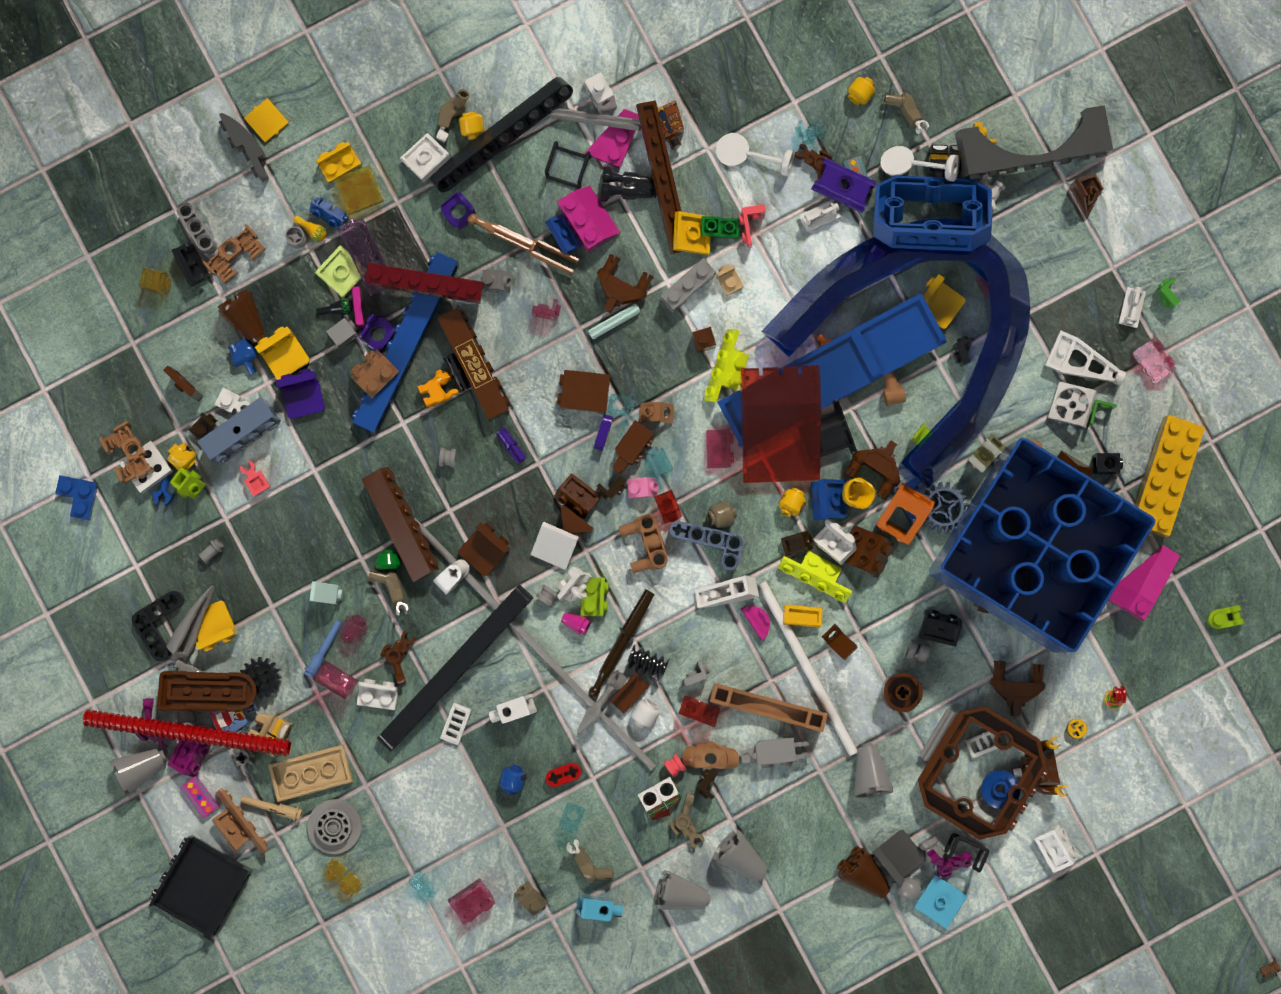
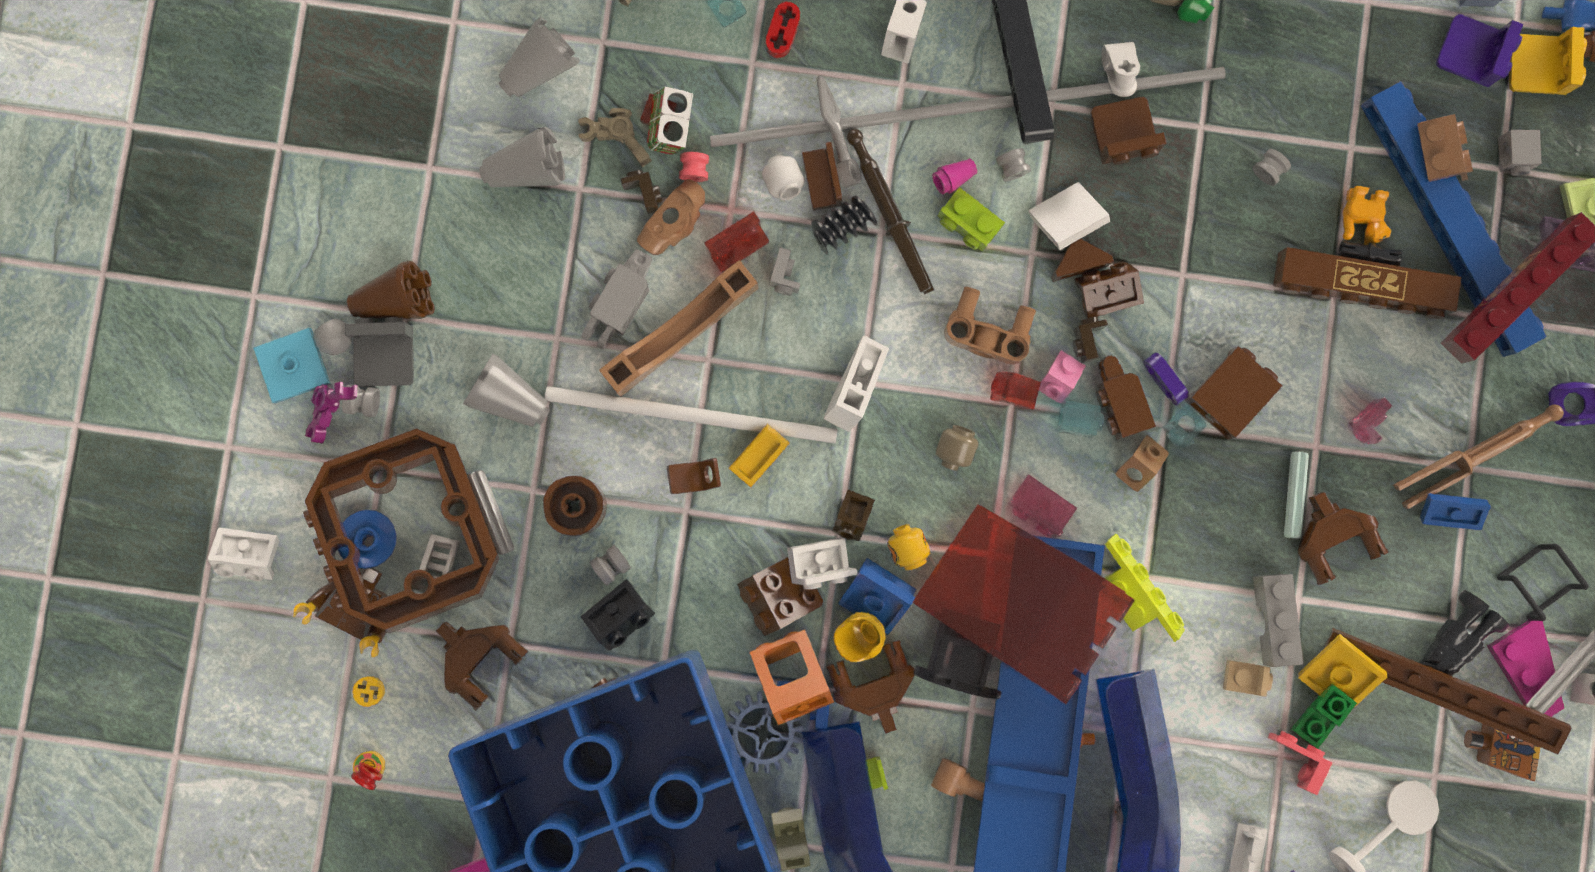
camera: 120 degrees right, 0 degrees up
(343, 307) = (1553, 173): black piece -> none
(358, 307) = (1539, 194): dark pink tile -> none
(374, 321) = (1505, 195): dark purple piece -> none
(400, 523) = (1231, 51): reddish brown brick -> none
(497, 280) = (1452, 387): light grey bracket -> none
(511, 445) = (1230, 255): dark purple axle -> none
(575, 587) = (1000, 201): white hips -> none
(588, 218) = (1453, 558): dark pink slope -> none
(704, 340) = (1194, 588): reddish brown brick -> none
(705, 541) = (940, 405): sand blue beam -> none
(758, 619) = (794, 398): dark pink tile -> none
(817, 573) = (797, 513): neon yellow bracket -> none
(958, 837) = (332, 411): black piece -> none

